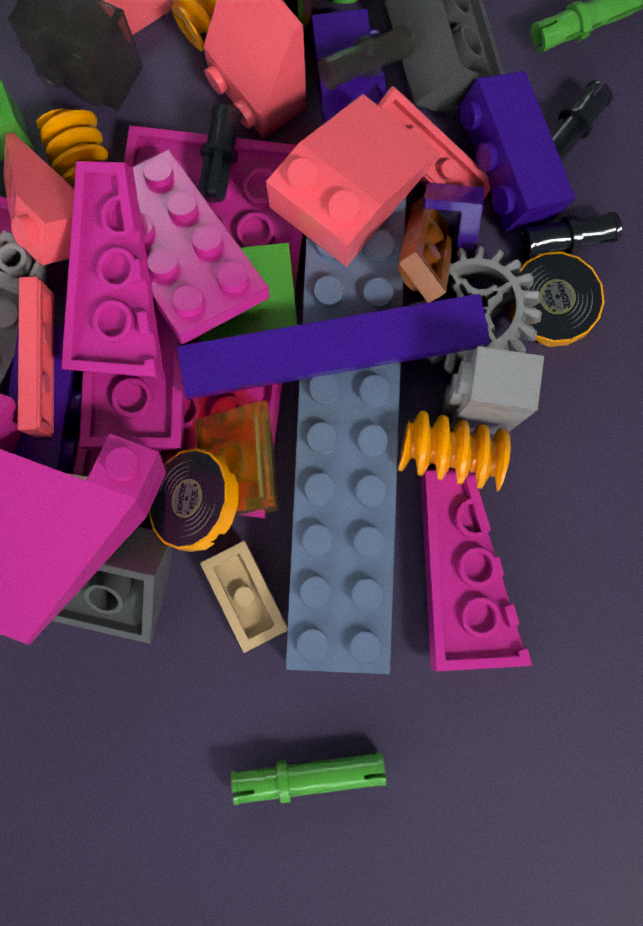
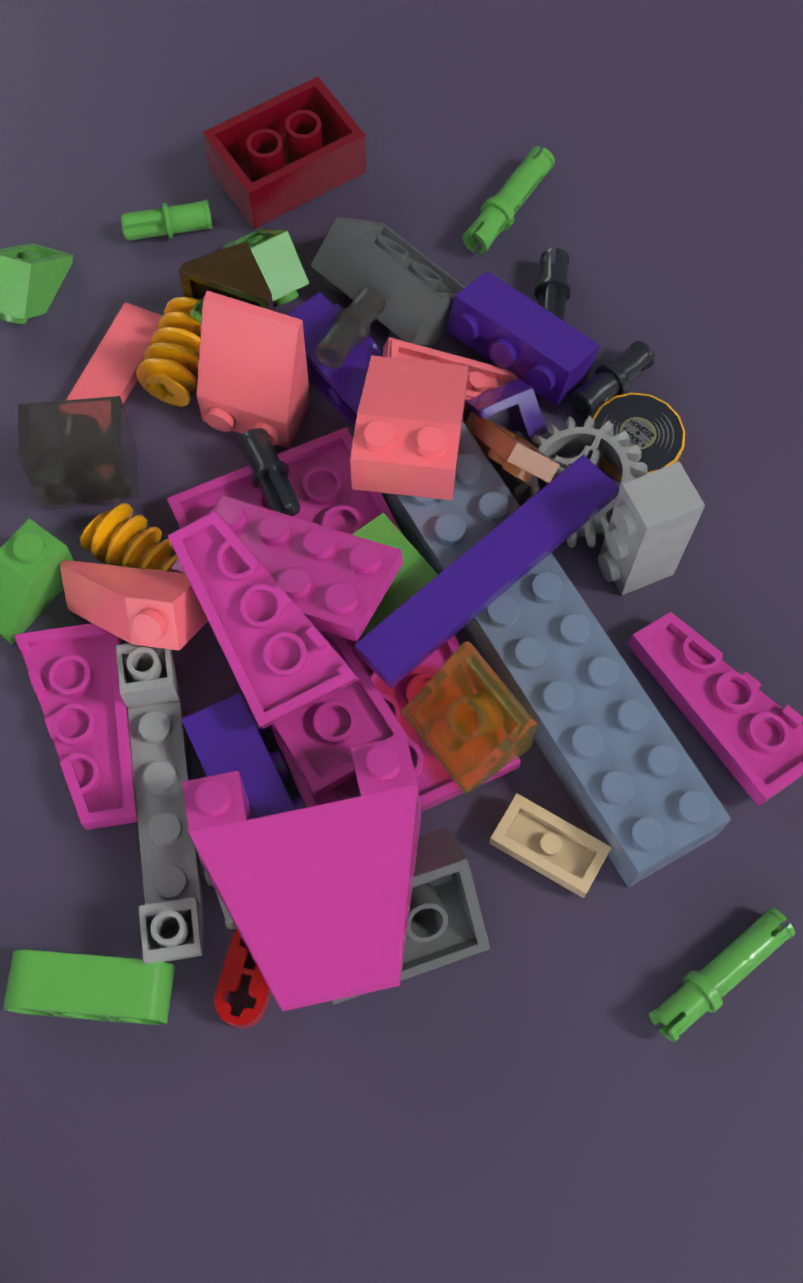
camera: 35 degrees left, 15 degrees down
(36, 358) = (228, 734): coral tile -> none
(194, 500) = (457, 773): black tile -> none
(456, 449) = (651, 593): light orange piece -> none

